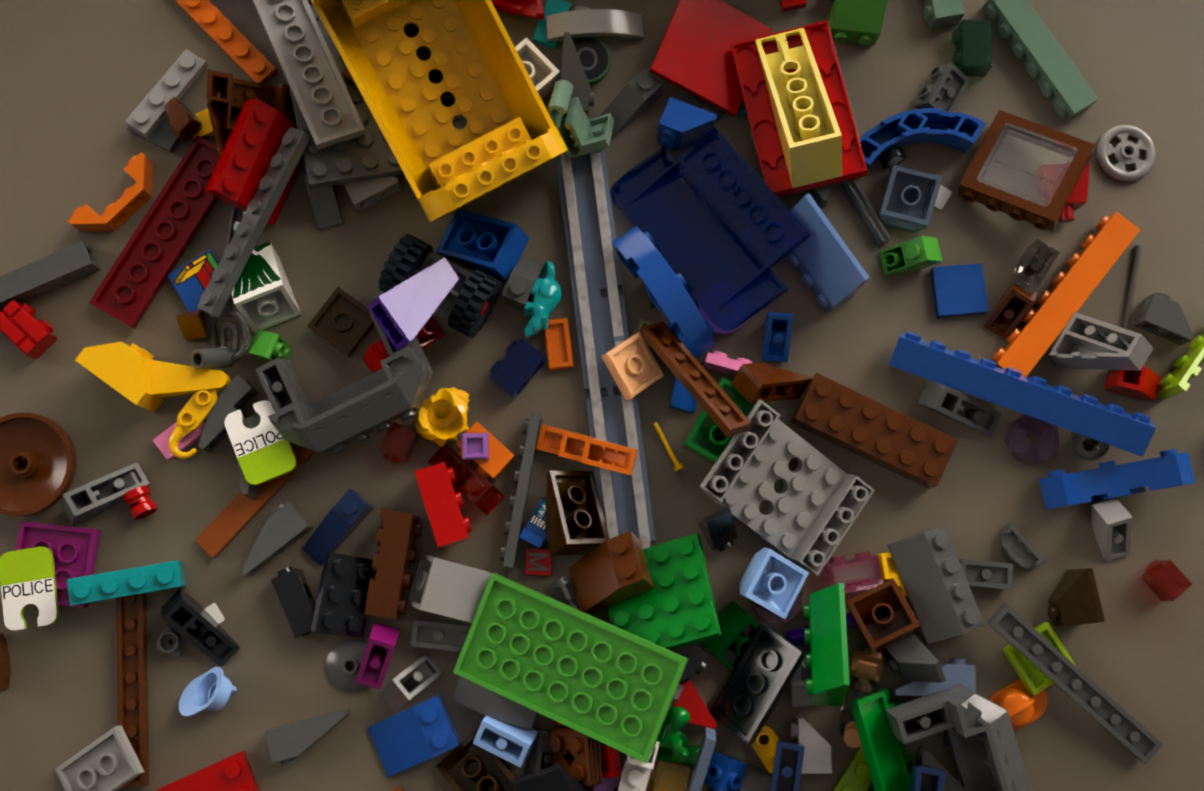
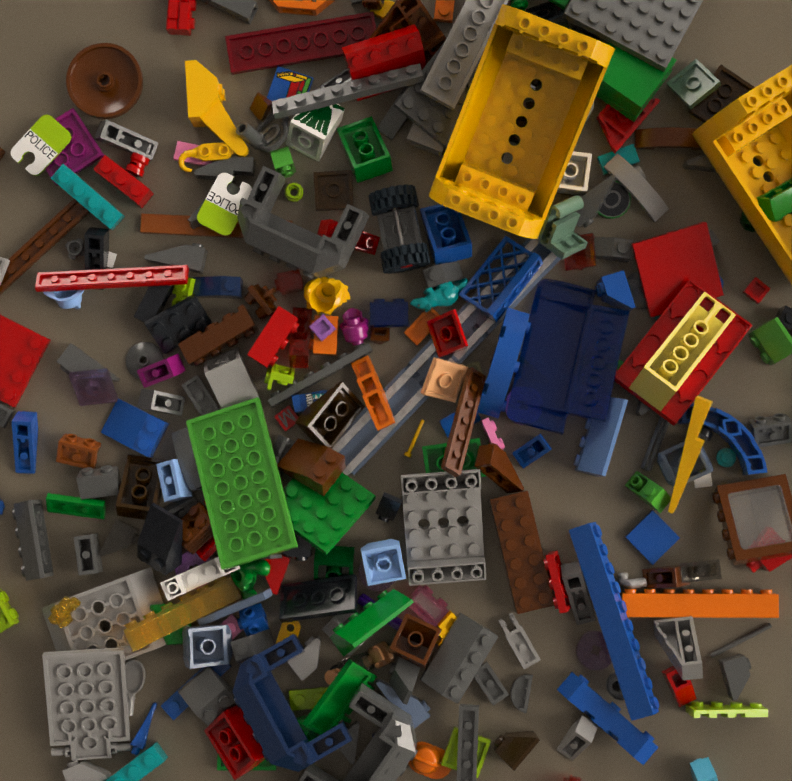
camera: 55 degrees right, 5 degrees up
(144, 531) = (123, 181): none -> red brick
(234, 628) = (112, 278): none -> red tile
(305, 358) = (294, 186): none -> lime plate
(310, 560) = (183, 291): none -> lime plate
(329, 256) = (365, 149): none -> green slope
(333, 744) = (93, 387): none -> plate
(383, 486) = (265, 299): none -> reddish brown hips
(411, 303) = (373, 224): slope -> none
(489, 527) = (280, 373): none -> lime bracket
(501, 413) = (354, 326): none -> magenta head
(531, 395) = (380, 334): none -> reddish brown slope
(588, 322) = (447, 333): none -> red slope
(593, 214) = (512, 289): none -> blue fence
(623, 130) = (583, 258): none -> clear red piece
(906, 178) = (691, 449): none -> yellow slope
(934, 419) = (556, 582): none -> red plate
(935, 155) = (726, 457): none -> teal plate
(966, 509) = (520, 643): none -> light grey hinge
(990, 348) = (631, 583): none -> light grey arm

